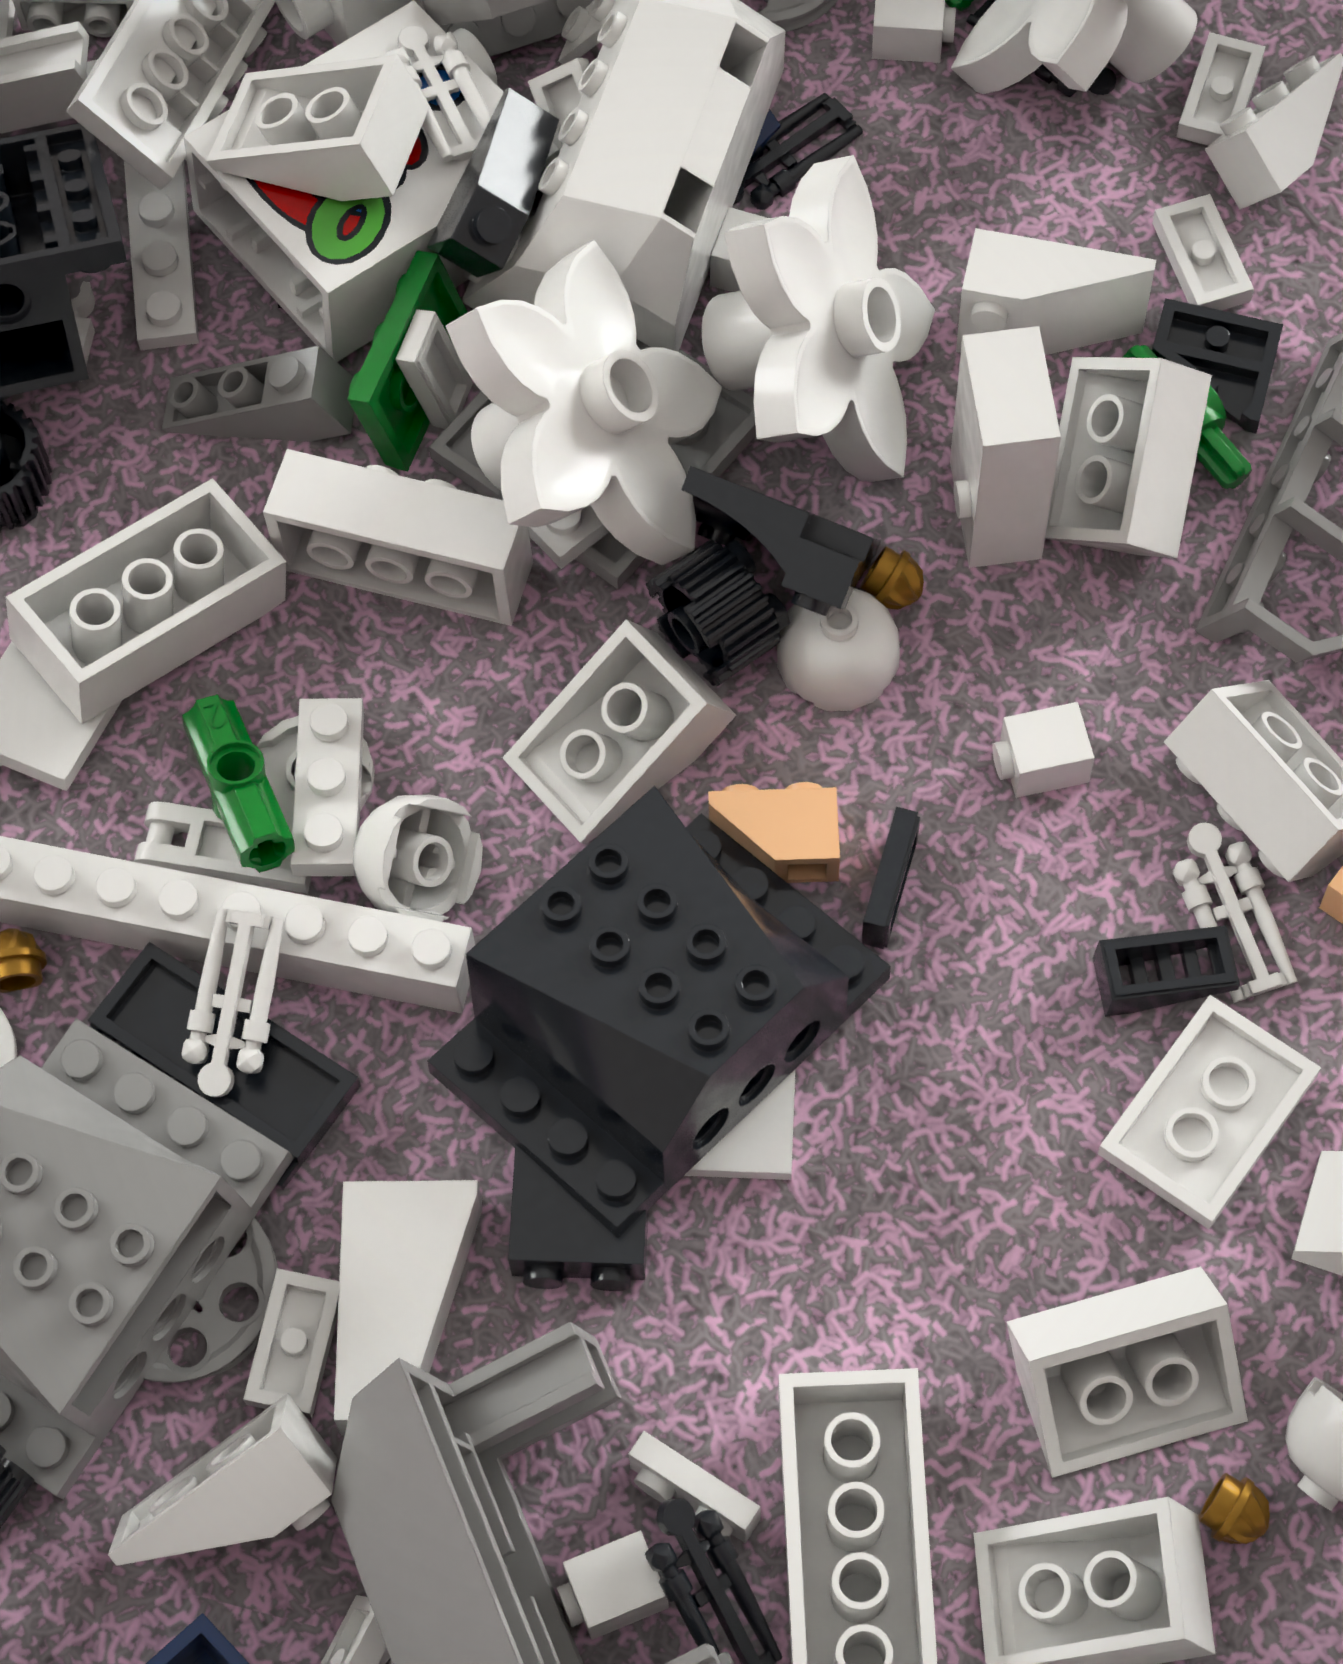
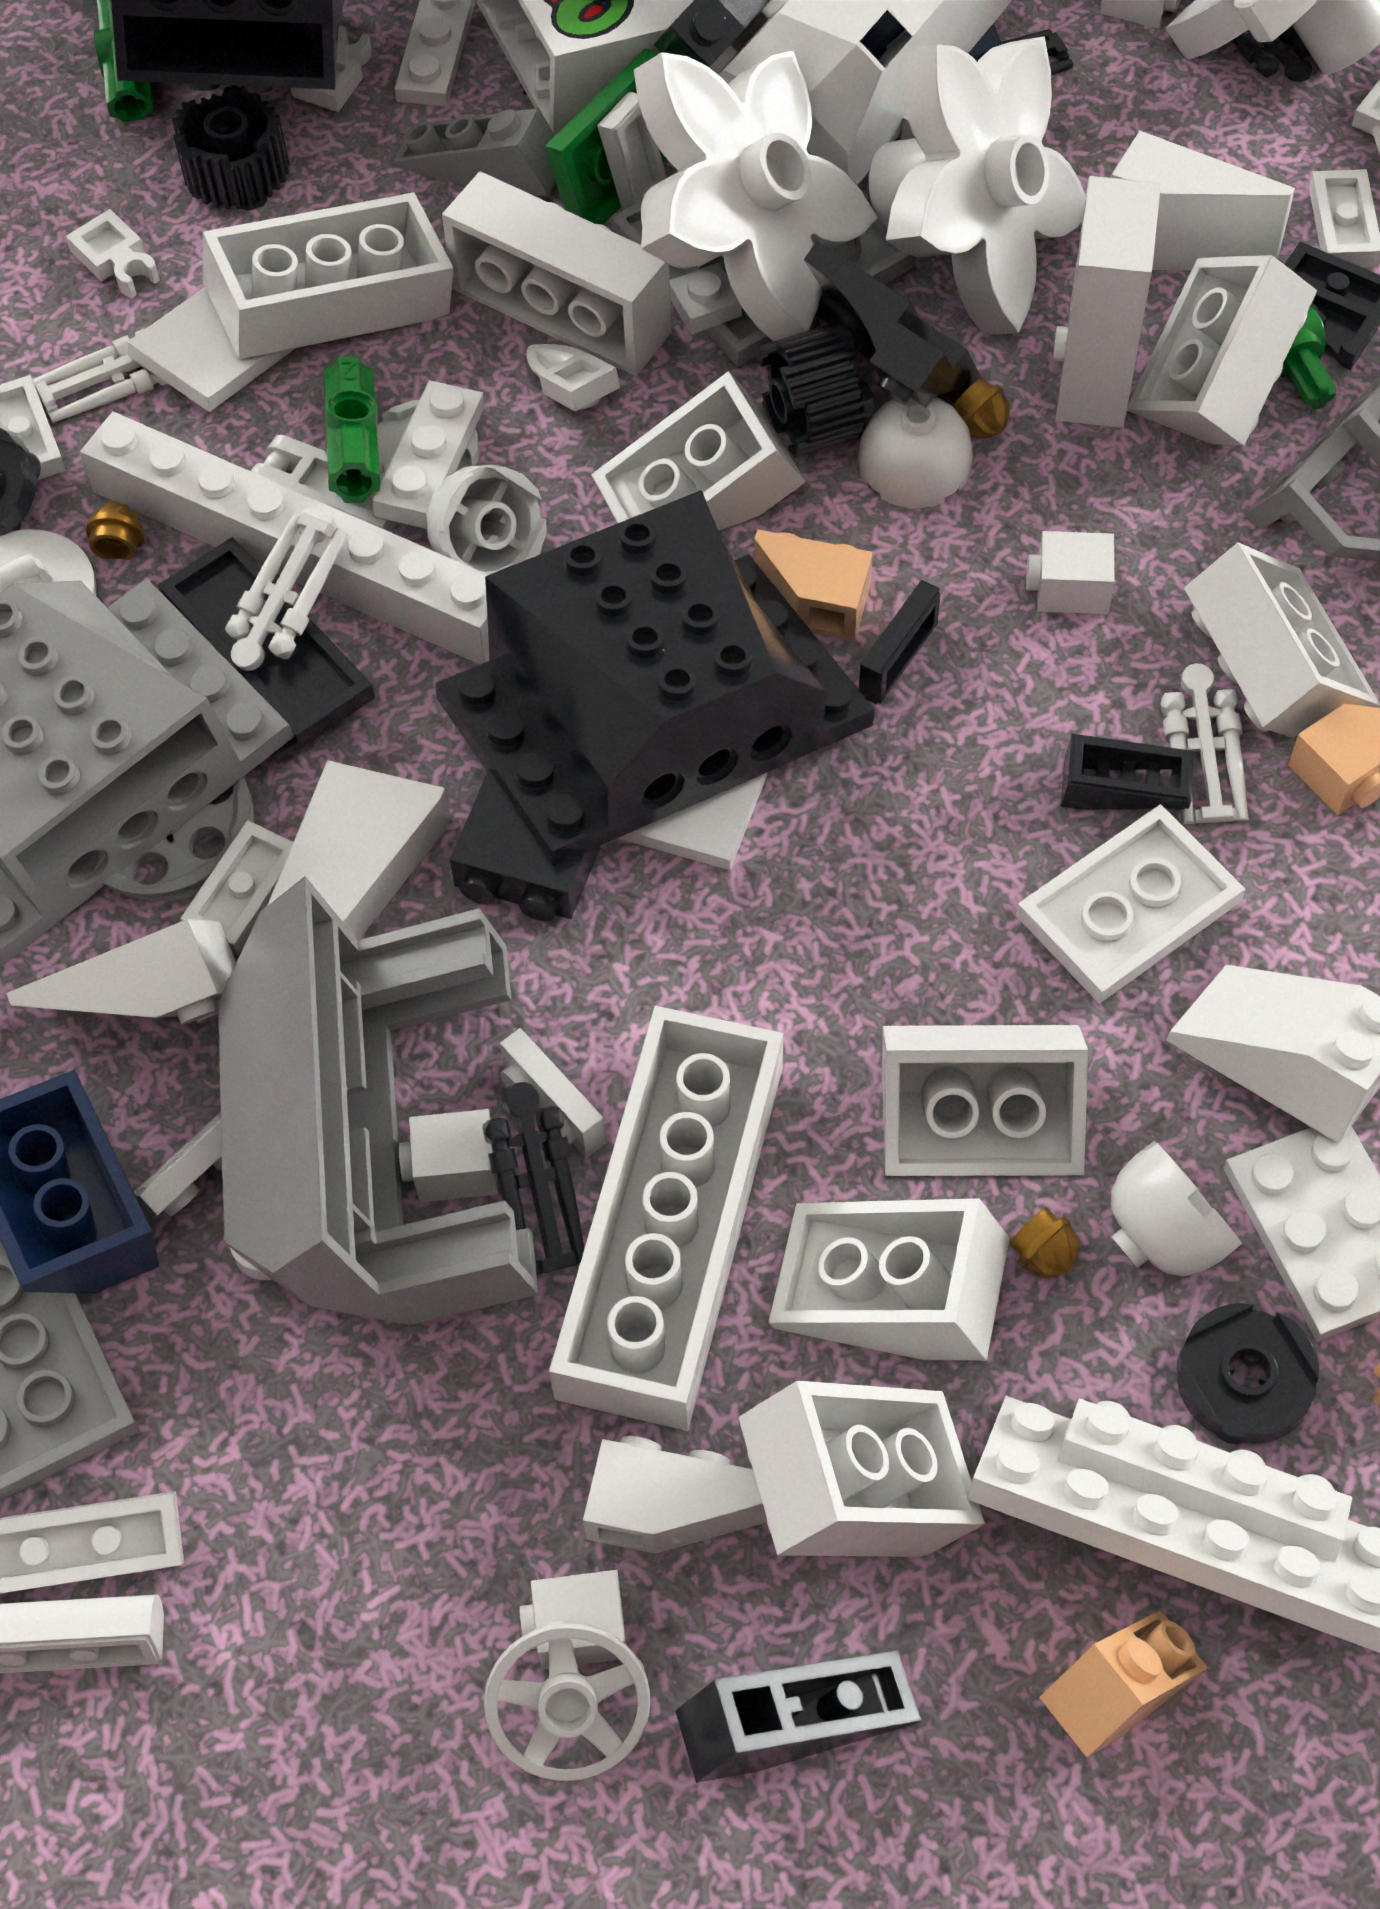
camera: 15 degrees right, 5 degrees down
(444, 646) = (572, 375): none -> white plate

